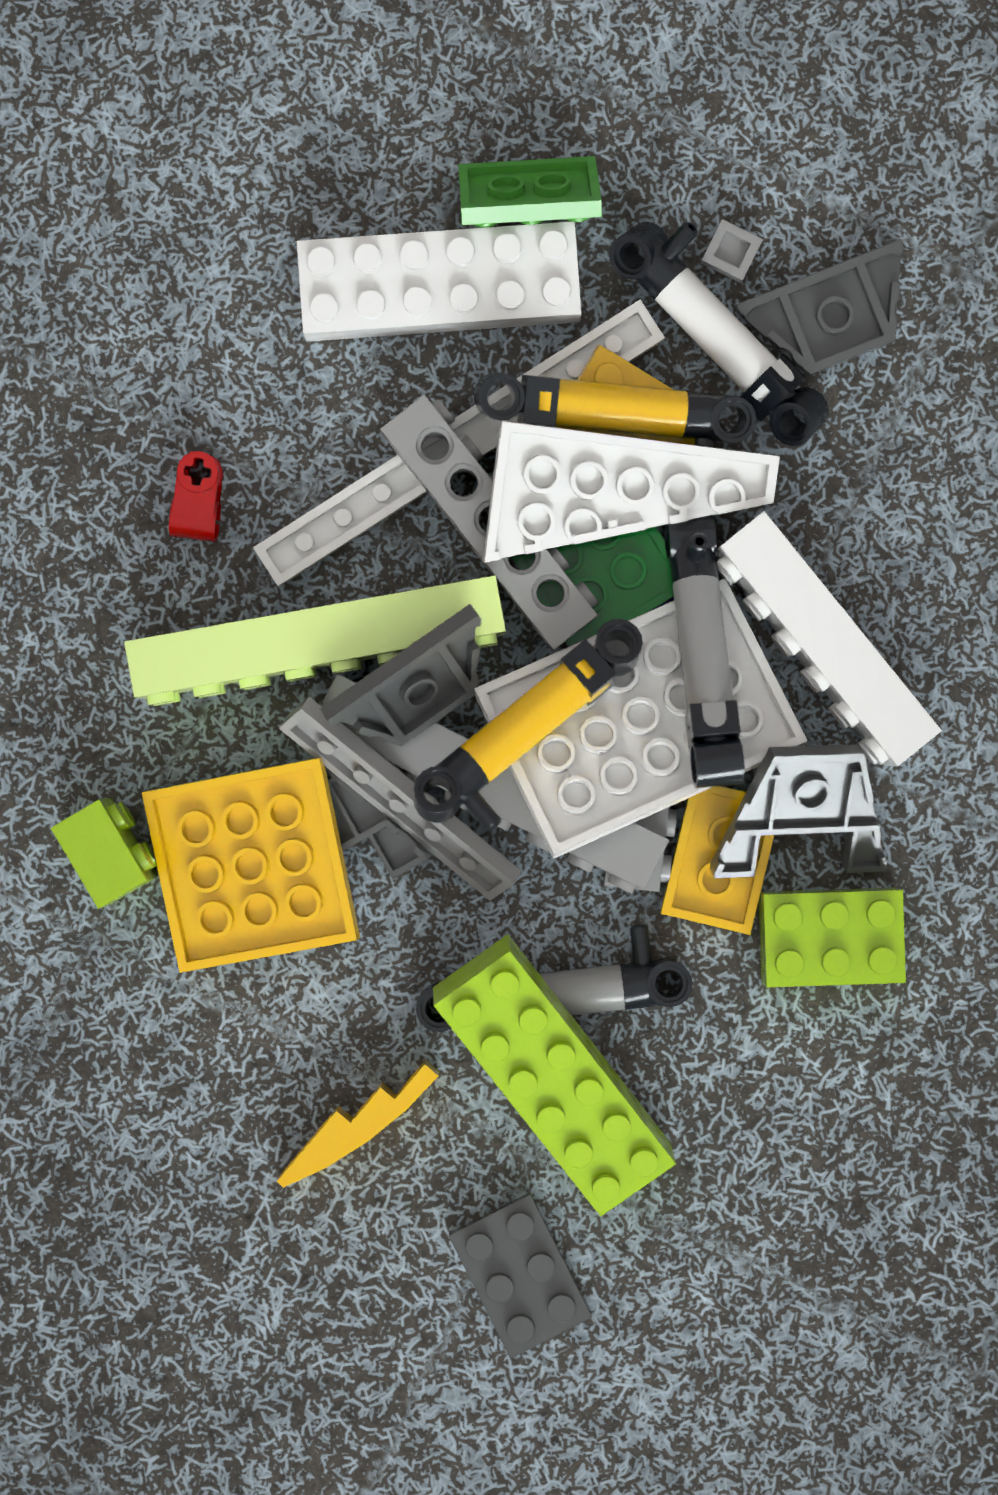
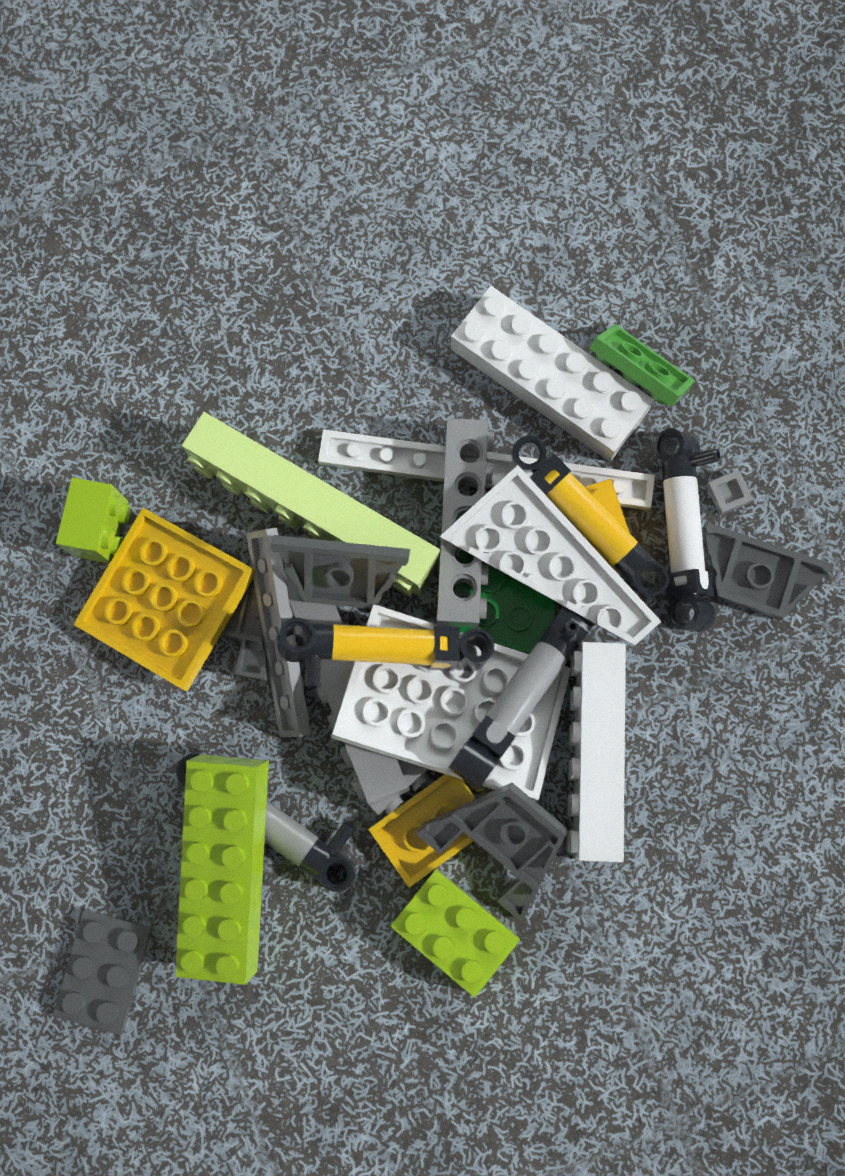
camera: 45 degrees right, 10 degrees down
(193, 506) = (314, 381): red piece -> none
(345, 1133) = (81, 796): yellow slope -> none

